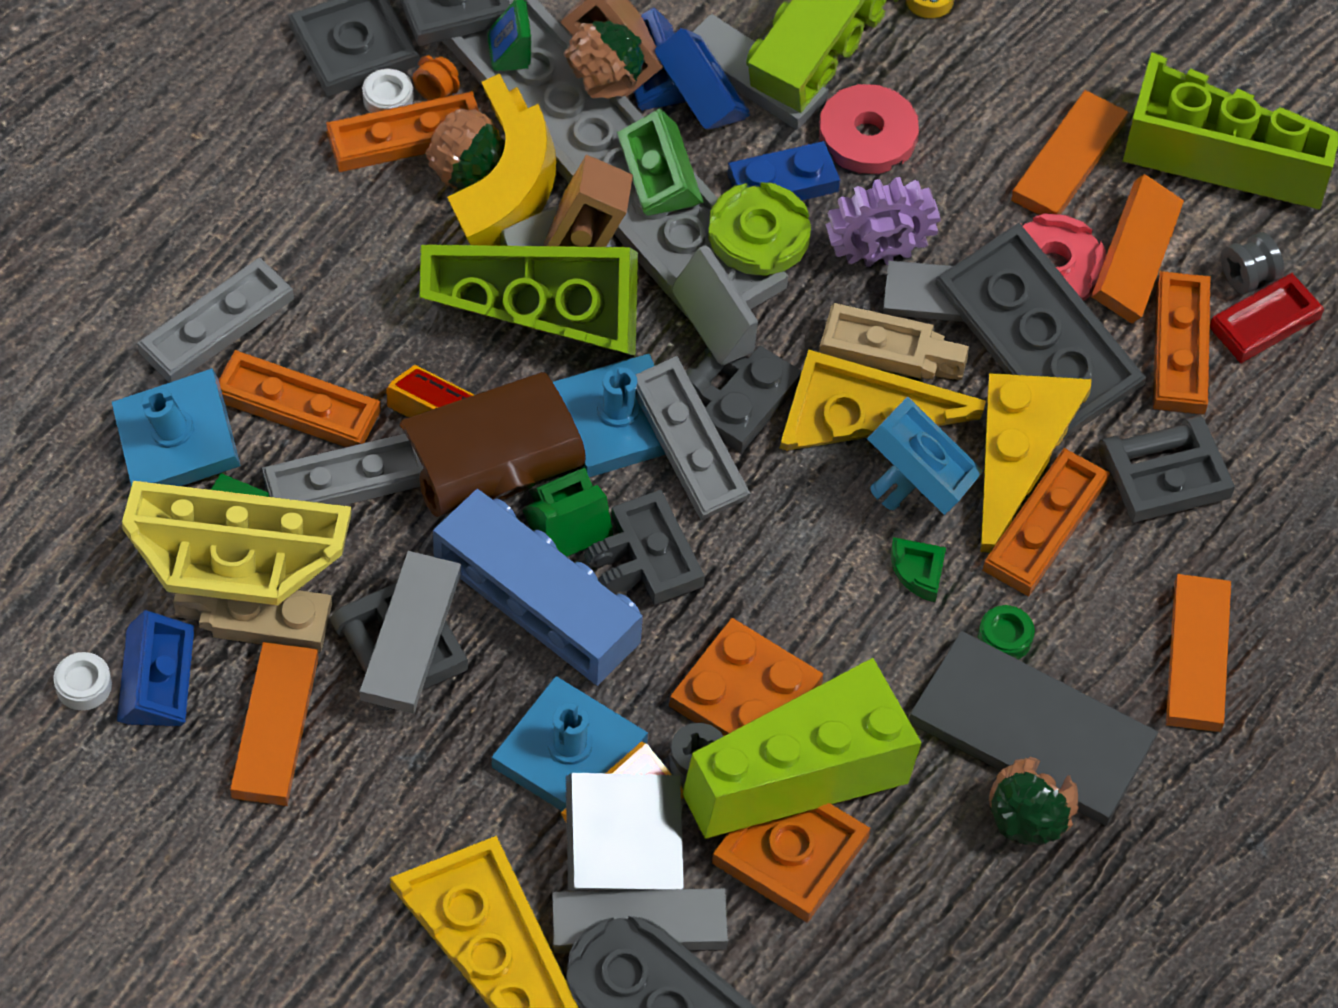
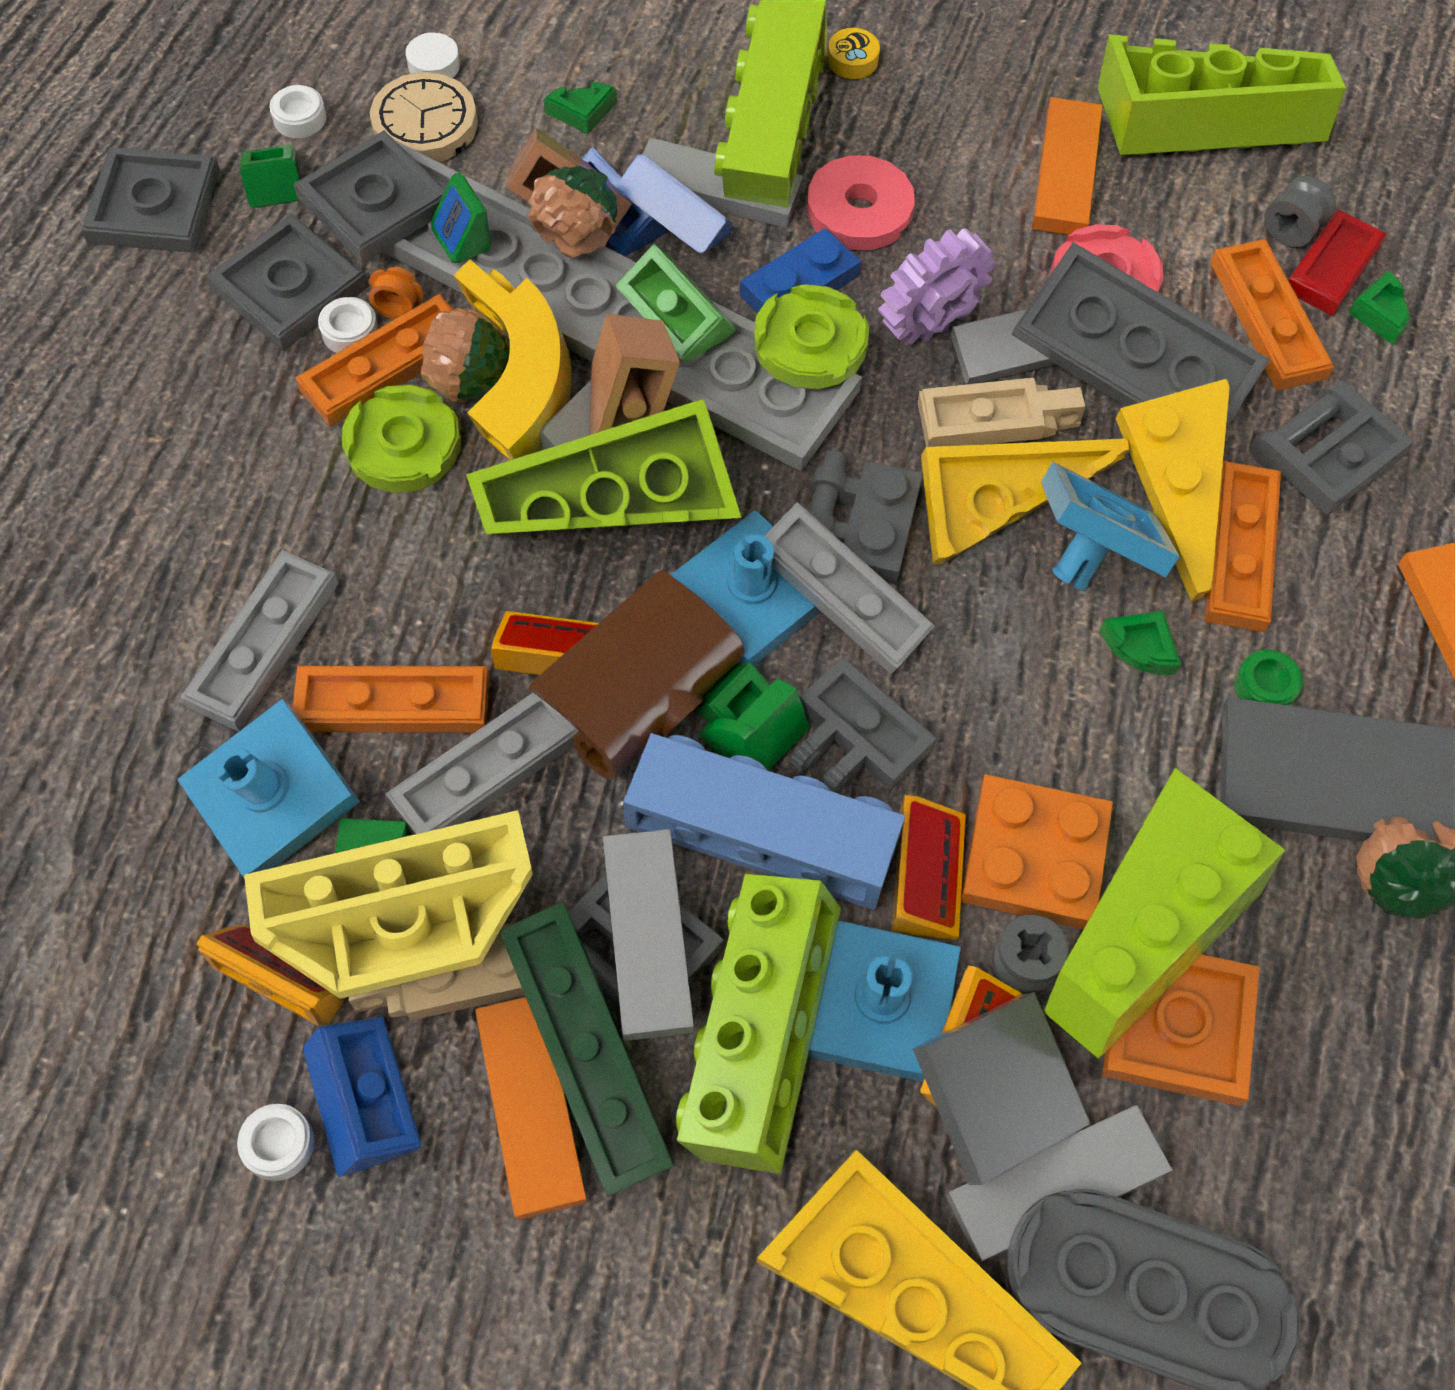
camera: 20 degrees left, 5 degrees up
(124, 564) = (248, 963): none -> light orange slope
(330, 695) = (587, 1049): none -> dark green plate
(391, 201) = (401, 439): none -> lime tile
(468, 724) = (759, 1023): none -> lime brick
(652, 670) = (928, 870): none -> slope
(716, 307) = (811, 434): light grey slope -> none
(1137, 249) = (1184, 235): orange tile -> none
(1286, 370) = (1383, 308): none -> green tile

